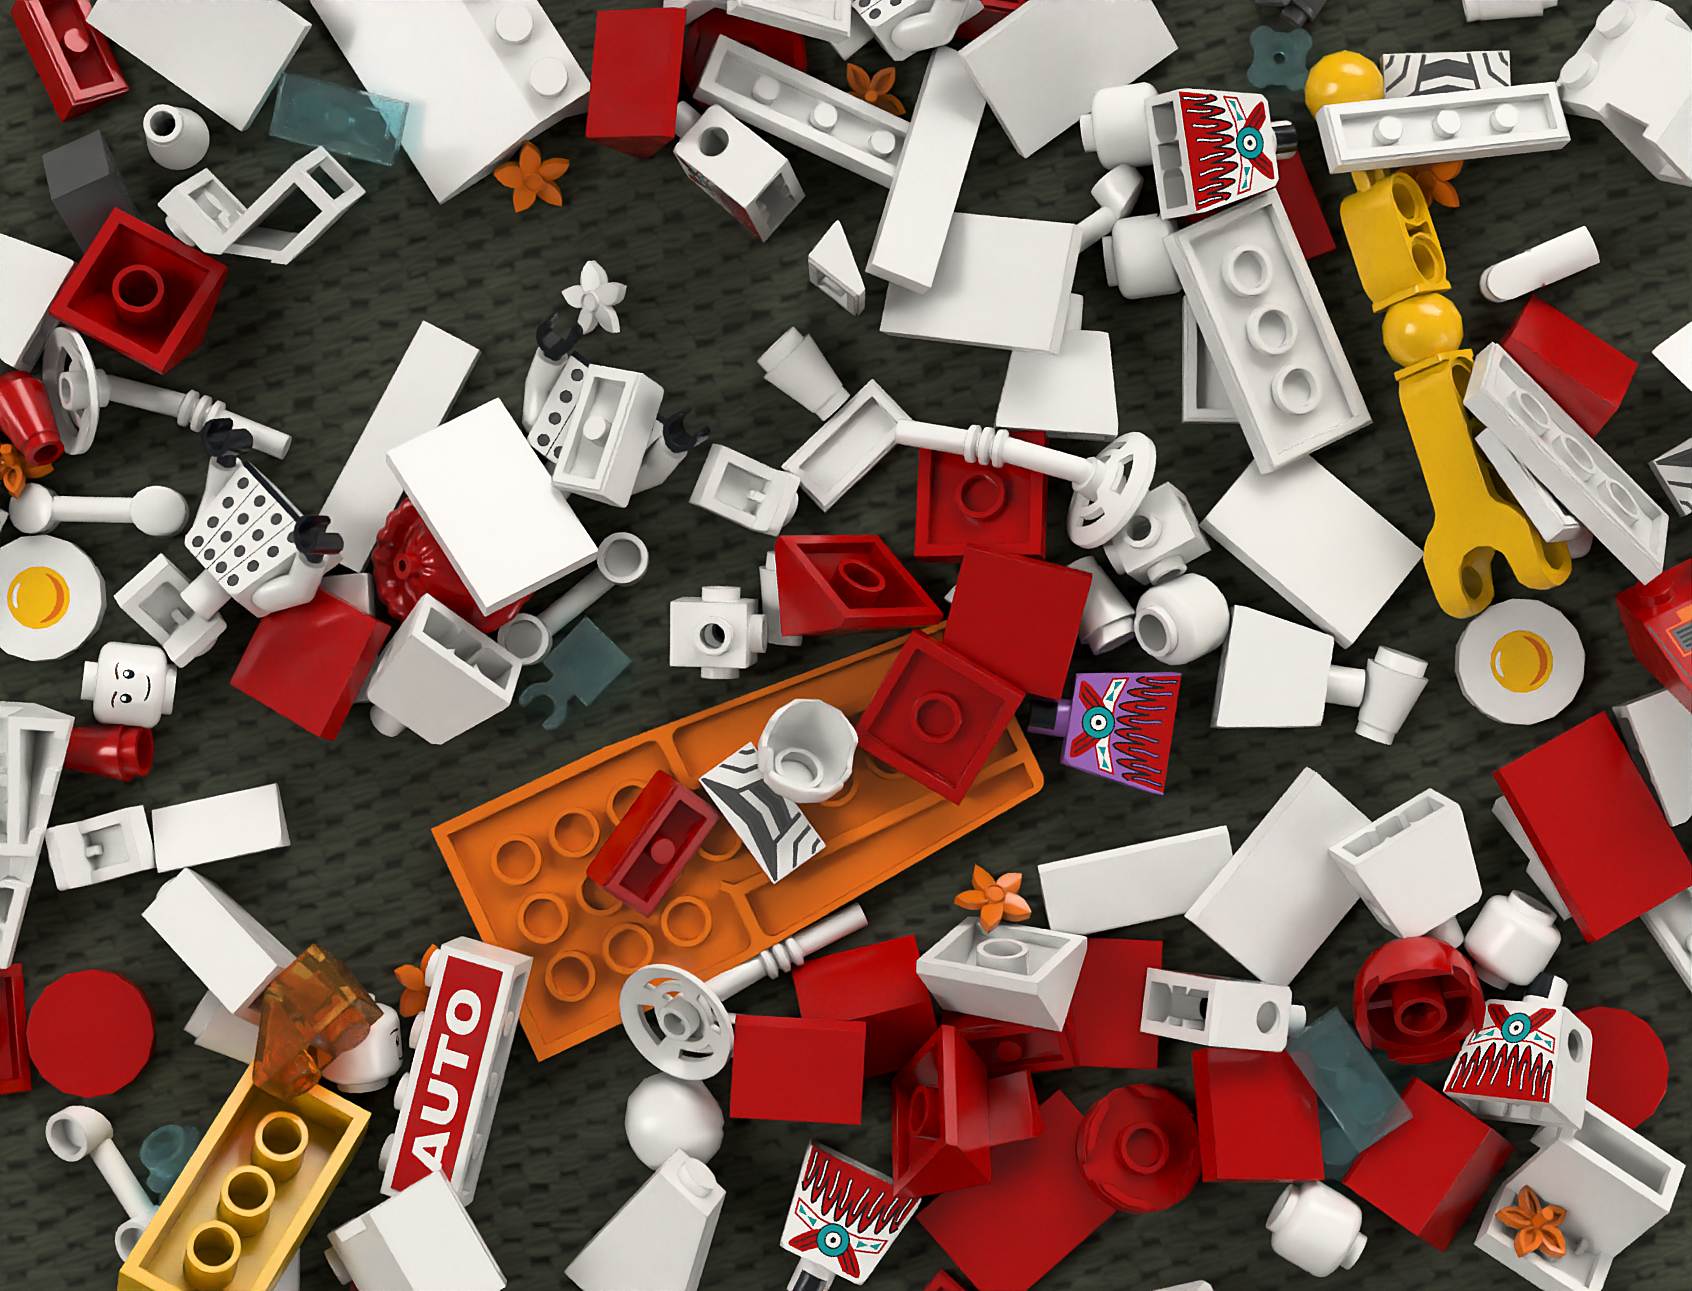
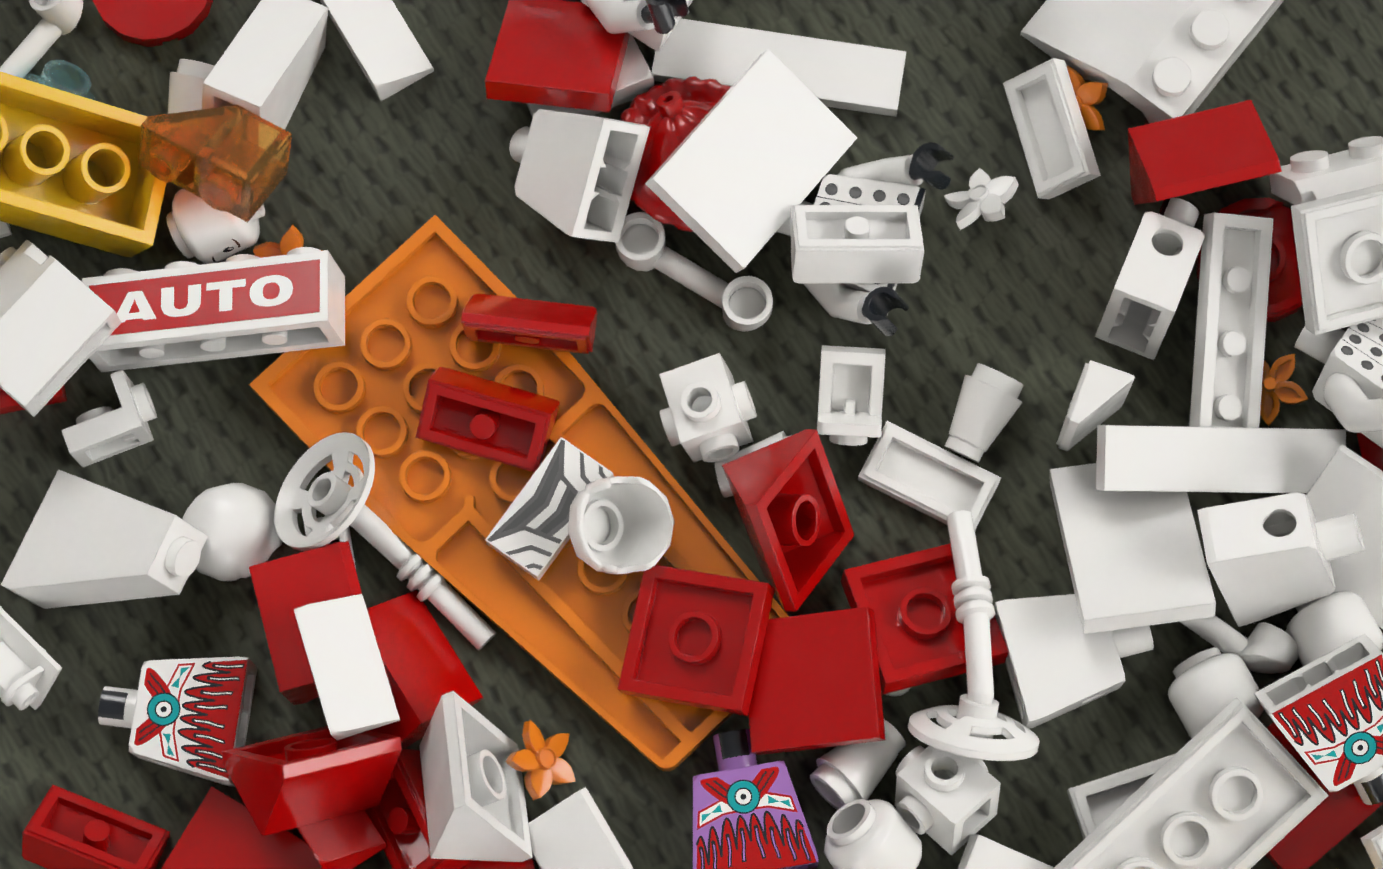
camera: 75 degrees right, 10 degrees down
(537, 1216) = (107, 431): none -> white bracket
(550, 209) = (1051, 129): none -> white tile
(572, 771) = (530, 323): none -> red slope
(582, 666) = (631, 302): clear light blue plate -> none
(860, 1053) = (346, 665): none -> white slope
(1041, 152) = (1274, 553): none -> white torso

